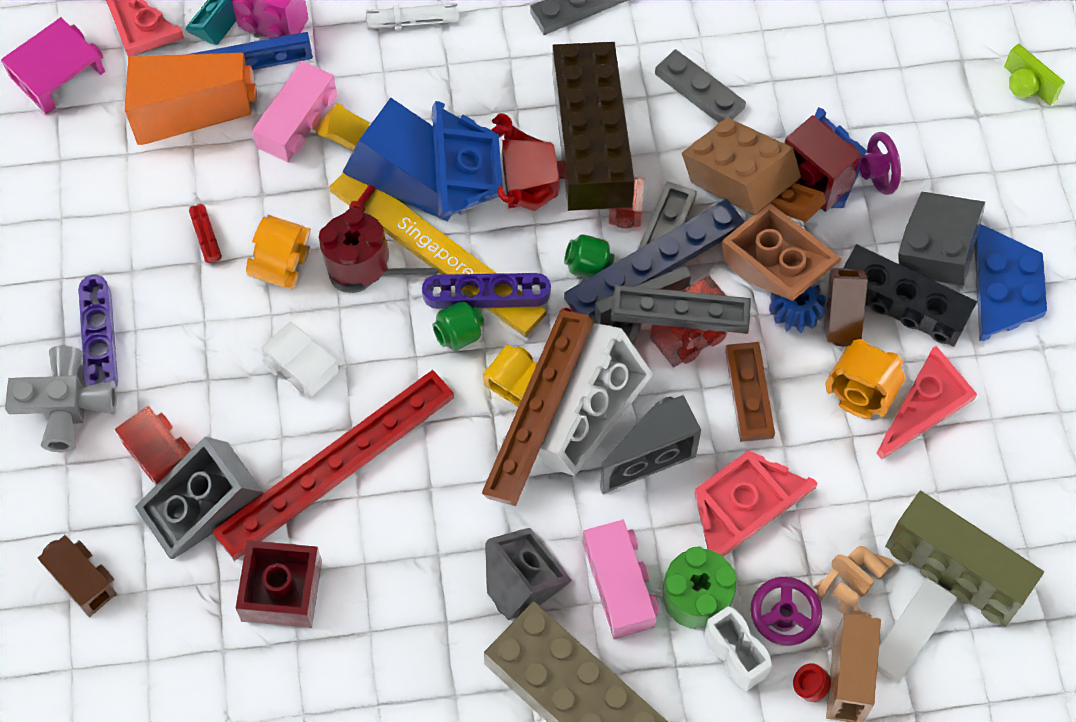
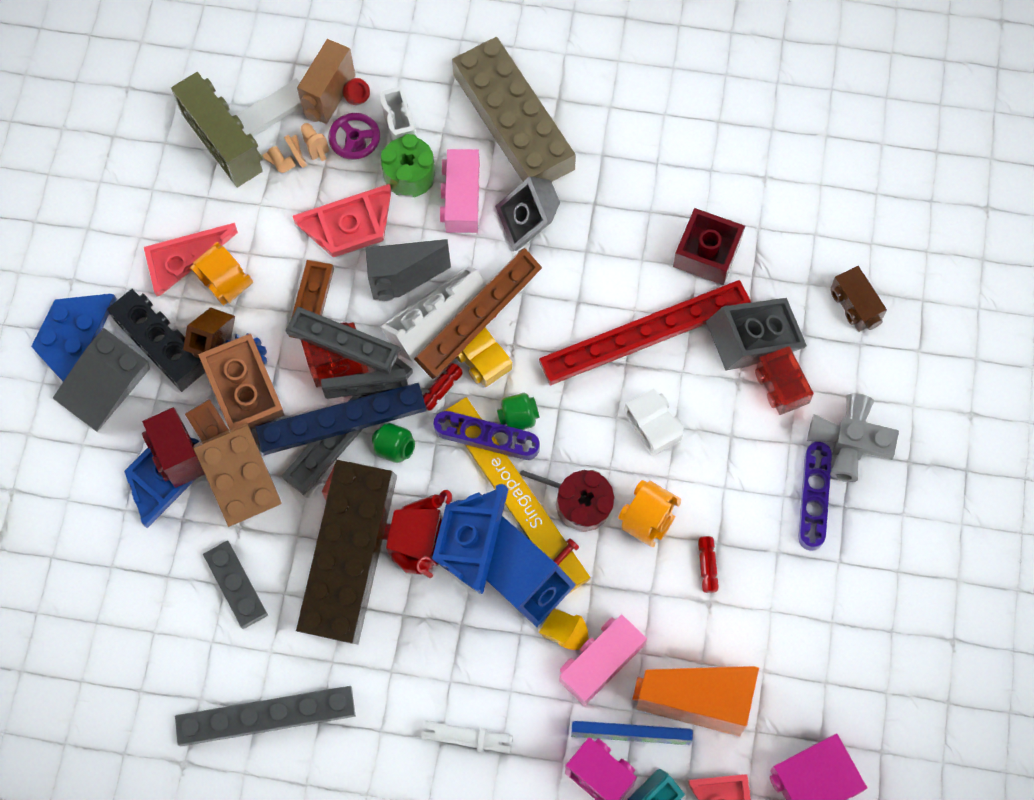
camera: 160 degrees left, 5 degrees up
(877, 165) = (120, 452): magenta piece -> none

